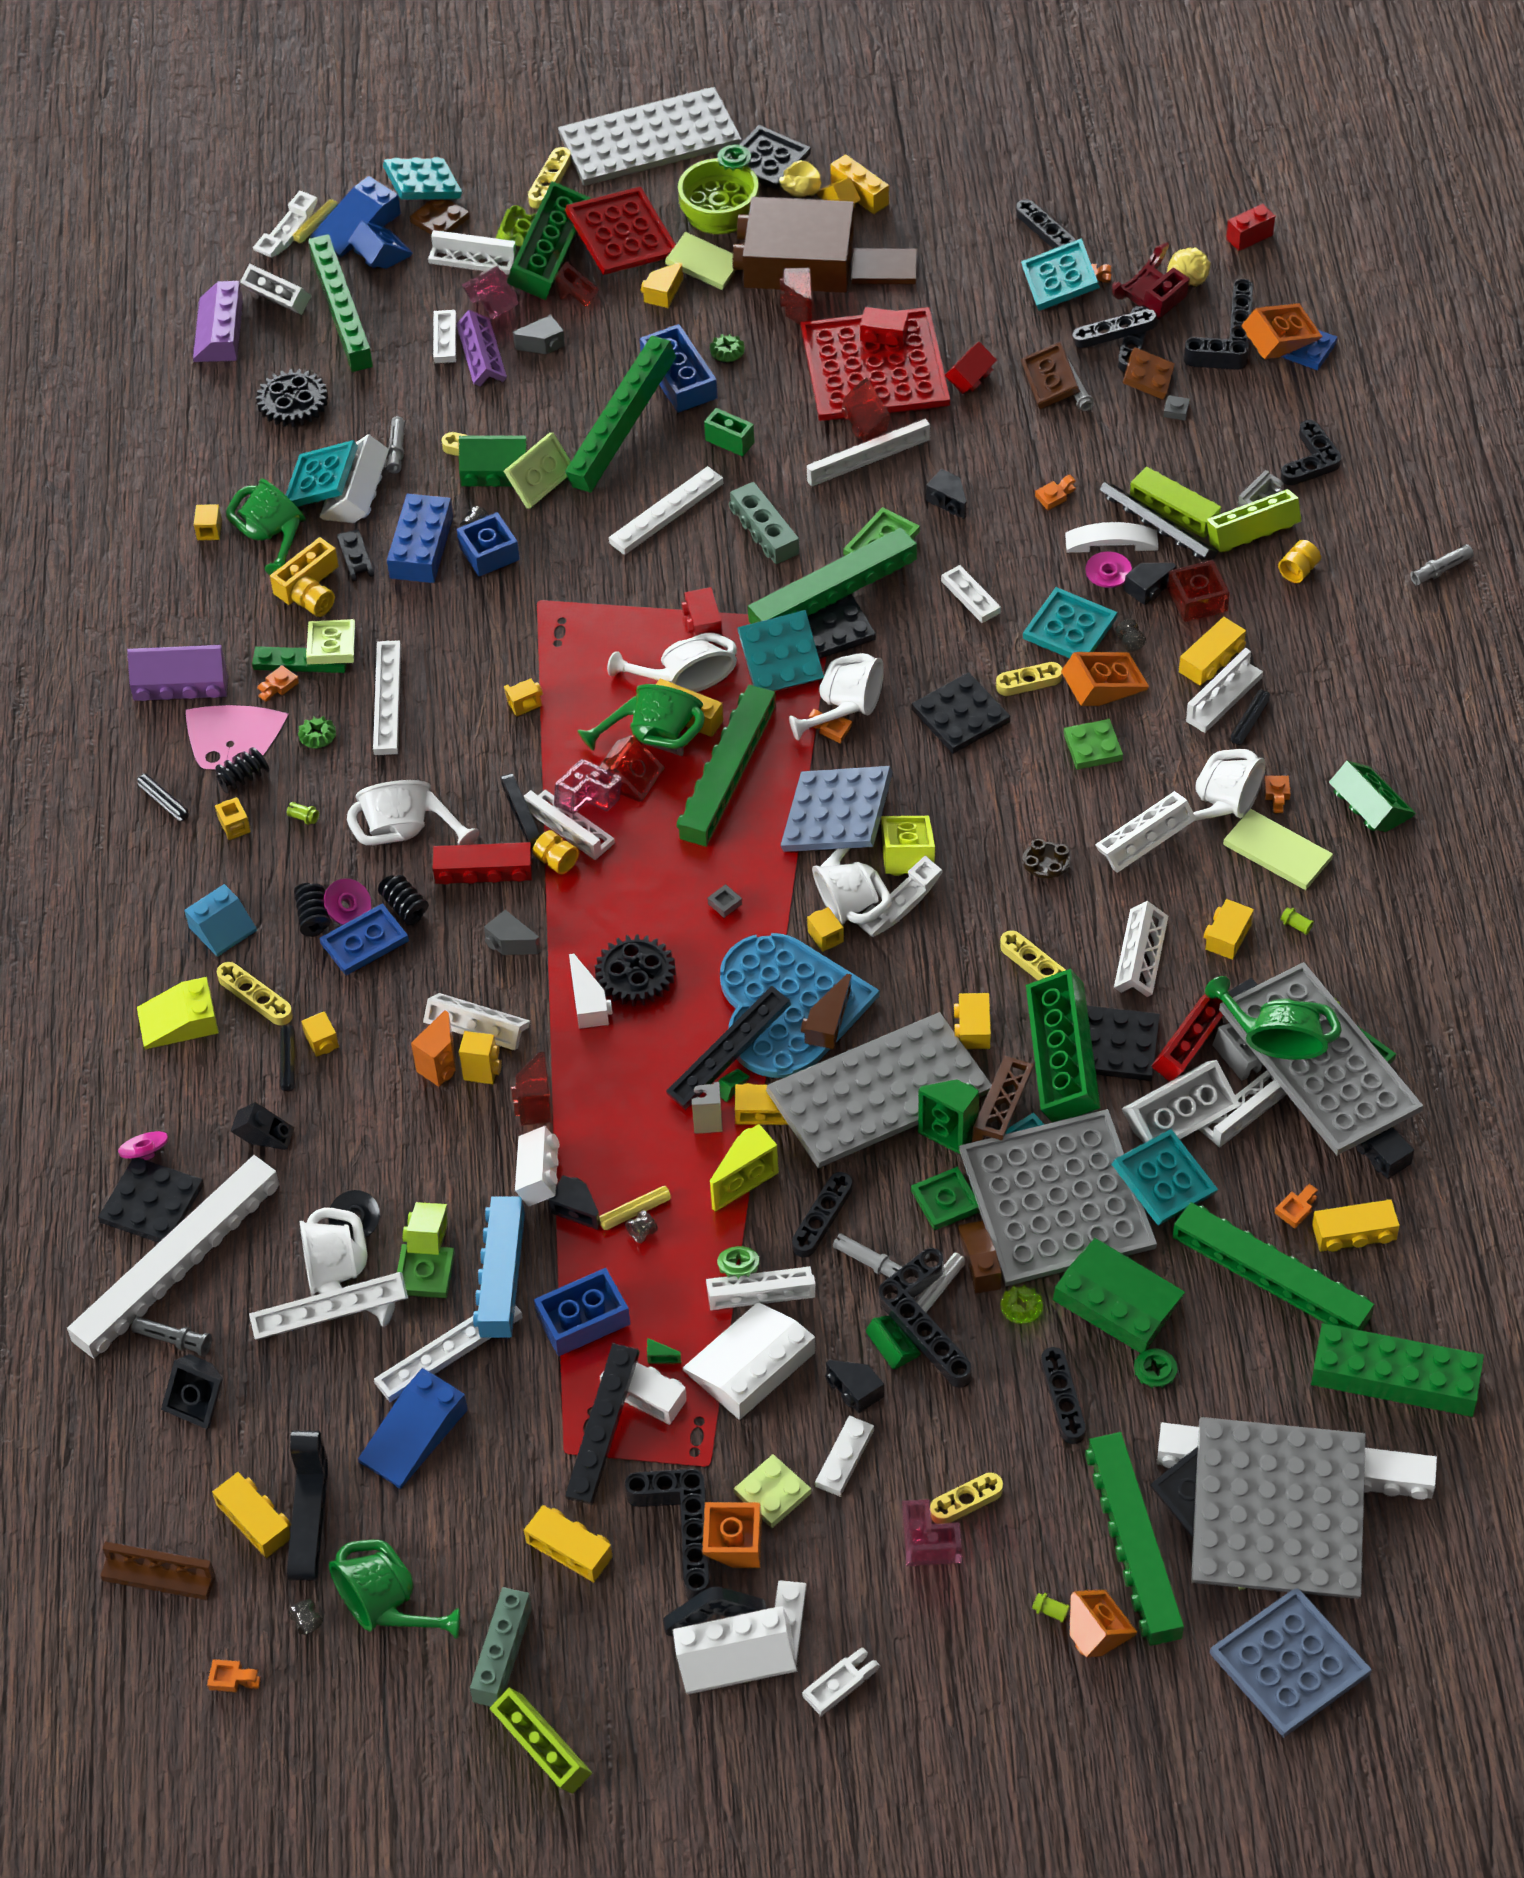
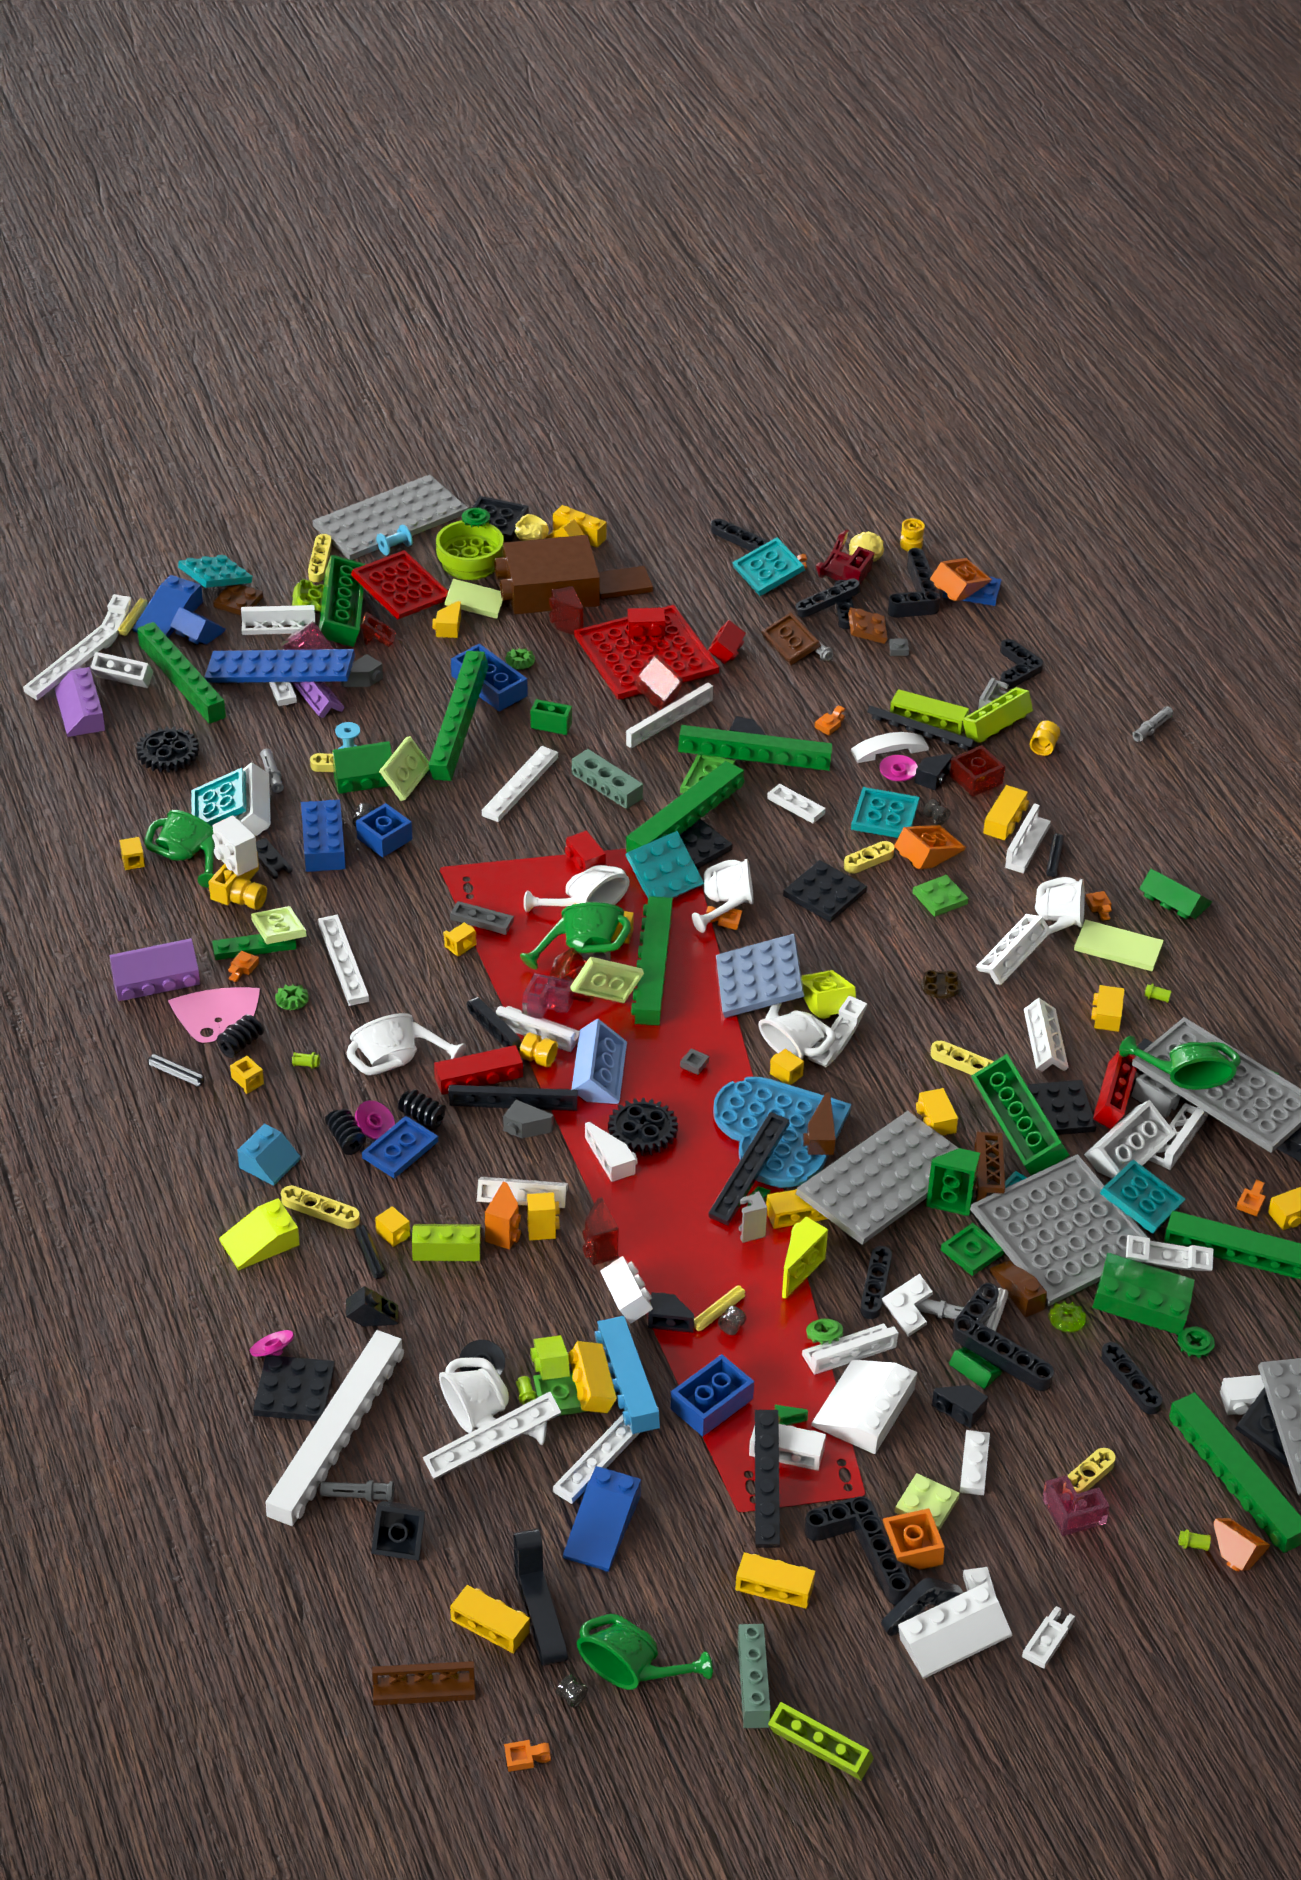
camera: 20 degrees left, 10 degrees down
(224, 268) = (69, 661): none -> white plate
(305, 539) = (235, 845): none -> white brick
(370, 1063) = (446, 1242): none -> lime slope
(389, 1259) = (525, 1390): none -> lime pin
(449, 314) = (280, 666): none -> blue plate
(459, 1261) = (592, 1377): none -> yellow brick
(489, 414) = (347, 732): none -> medium azure piece
(497, 902) = (505, 1096): none -> black plate
(557, 674) = (481, 917): none -> dark grey plate
(617, 883) = (599, 1064): none -> light blue slope
(640, 168) = (402, 536): none -> medium azure piece
(656, 783) = (607, 979): none -> yellowish green tile
(837, 1247) = (903, 1304): none -> white plate
(948, 513) = (755, 747): none -> green brick
(1165, 1254) = (1169, 1255): none -> white slope
(1250, 227) = (900, 510): red brick -> none
(1250, 259) = (912, 534): none -> yellow wheel

